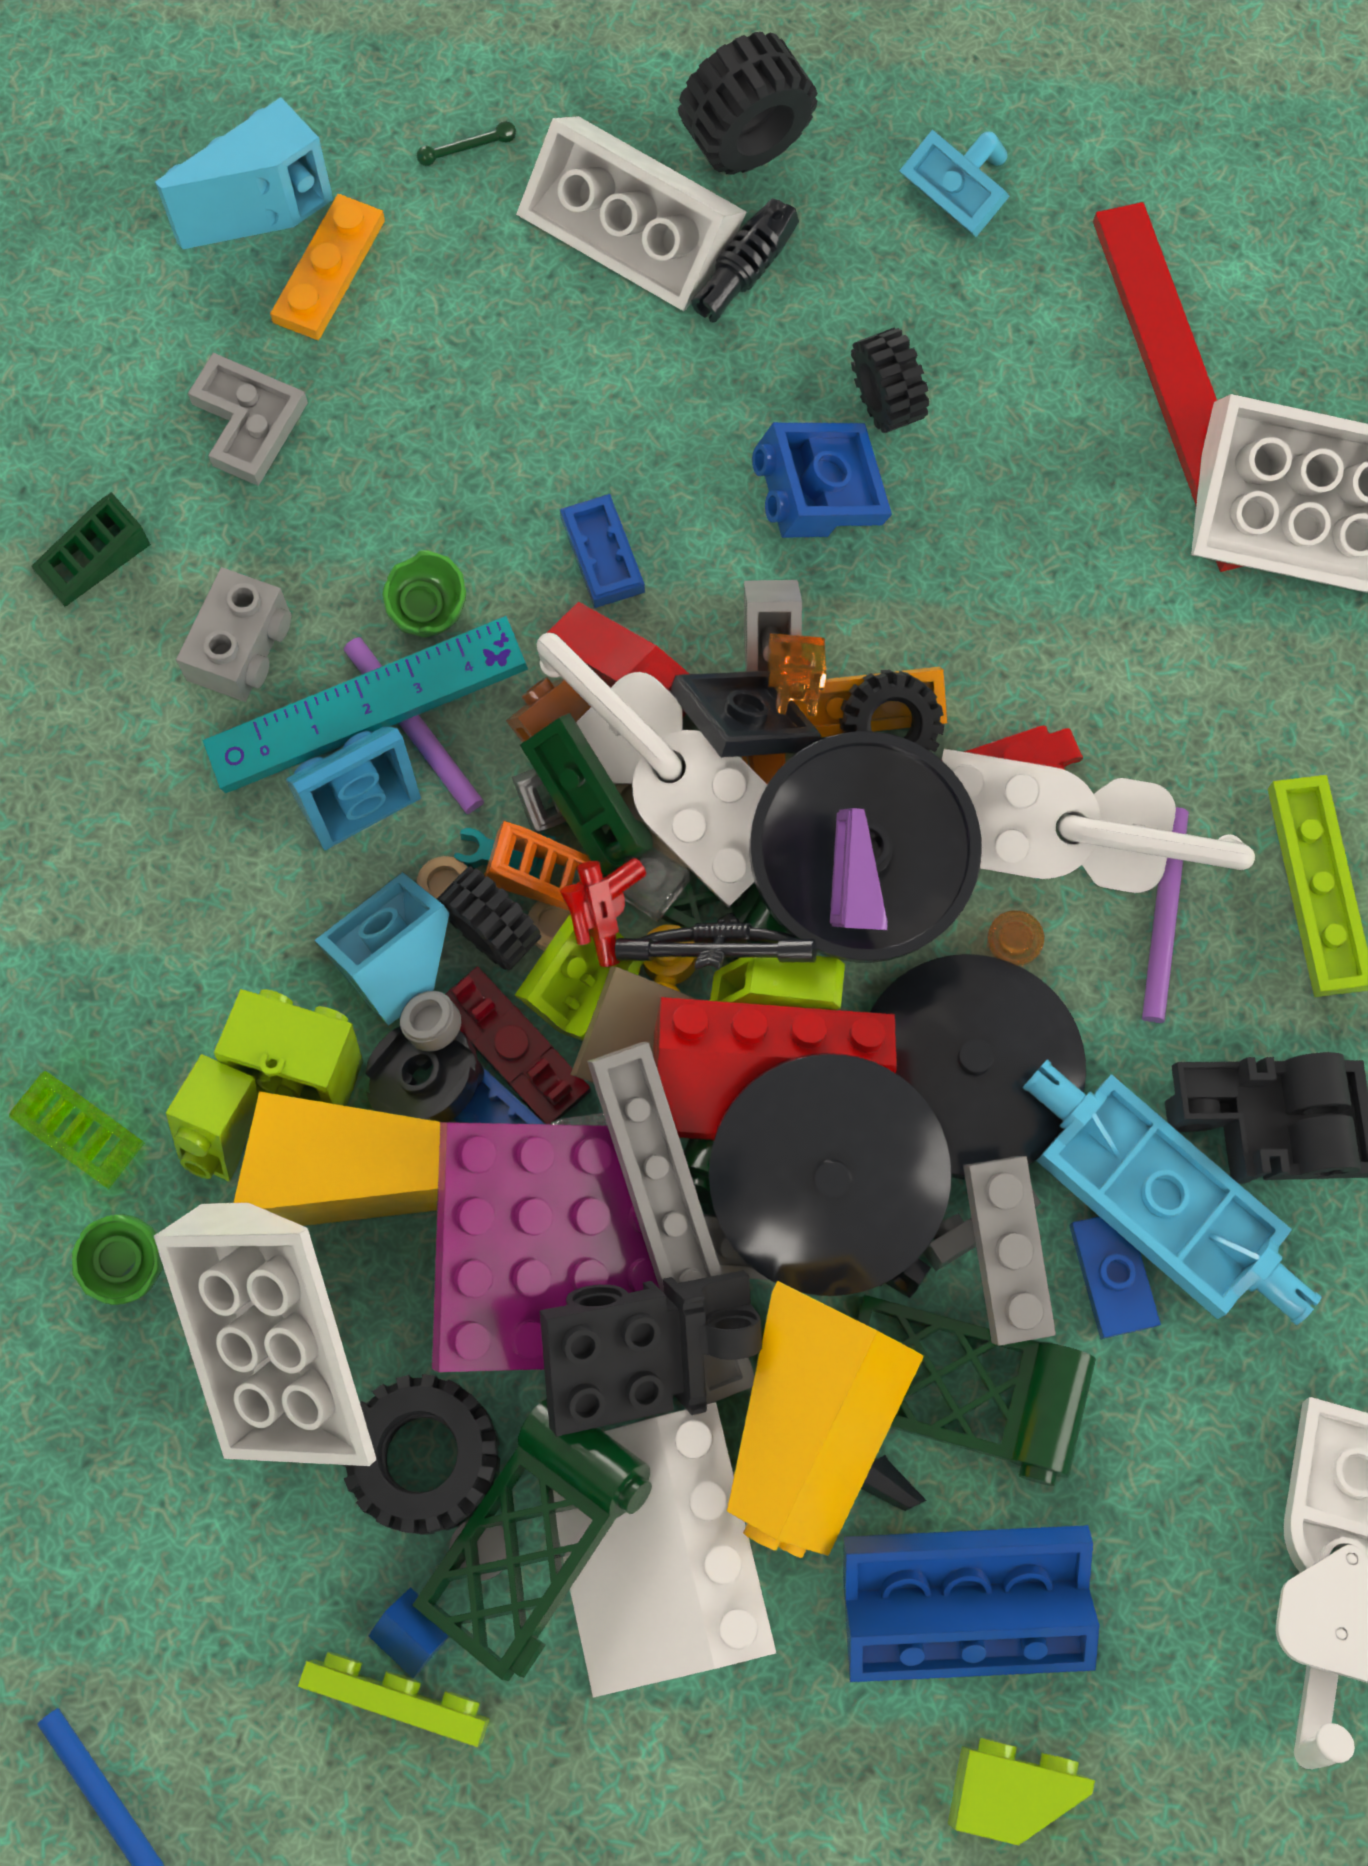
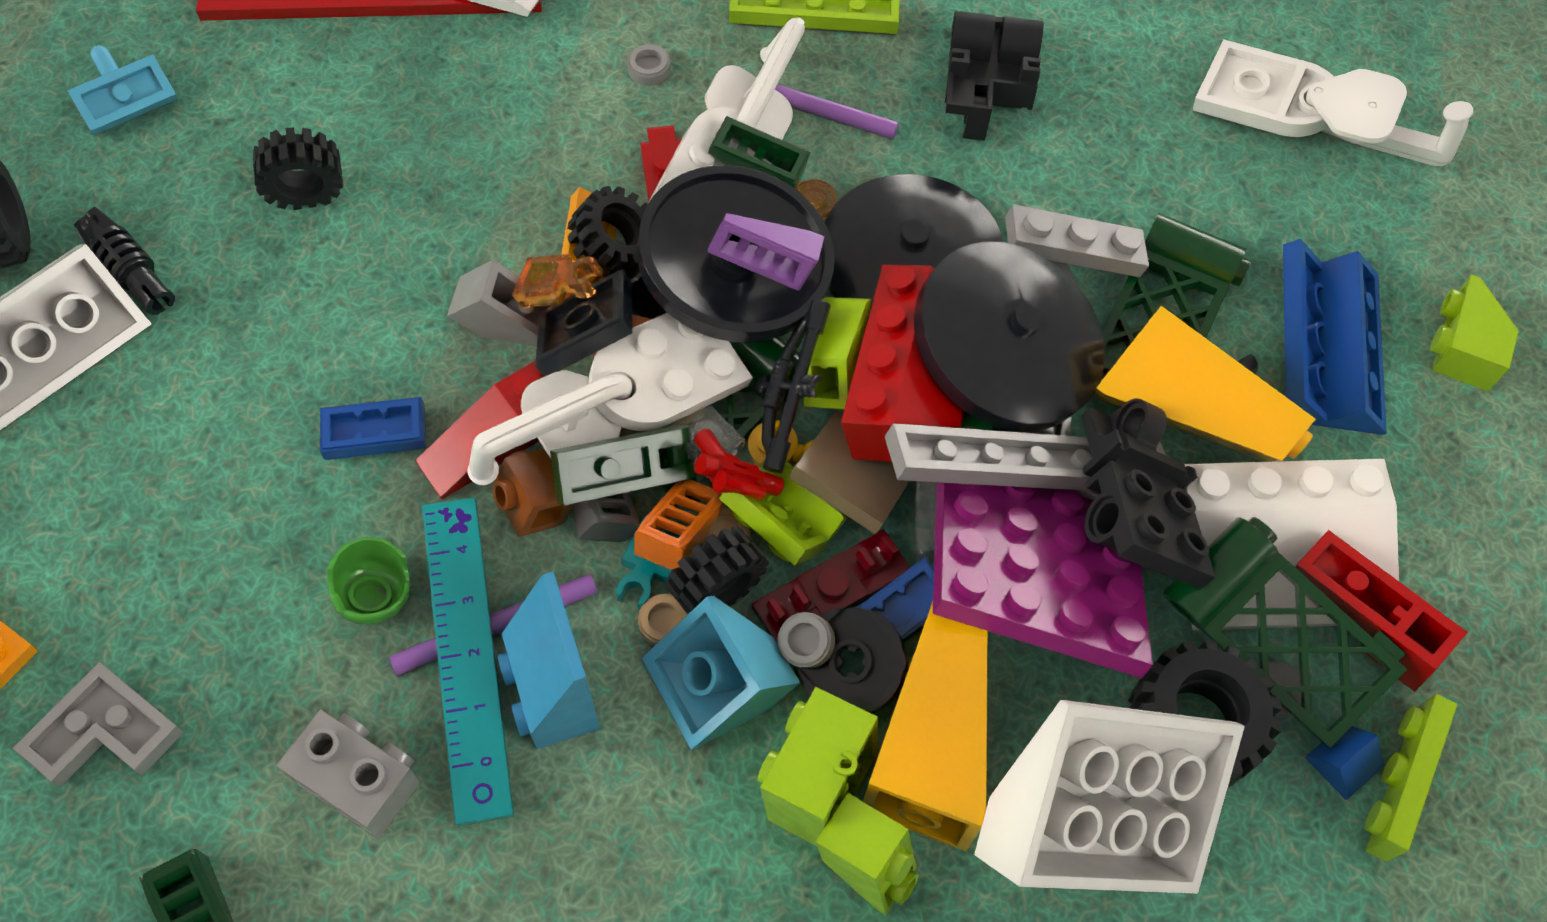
camera: 80 degrees left, 10 degrees down
(582, 1649) = (1382, 604): none -> red slope
(820, 478) = (366, 245): blue plate -> none
(1015, 852) = (786, 160): none -> dark green slope
(1113, 1279) = (1091, 196): blue plate -> none
(1166, 1197) = (1039, 145): medium azure plate -> none
(1170, 710) = (648, 65): none -> light grey tile

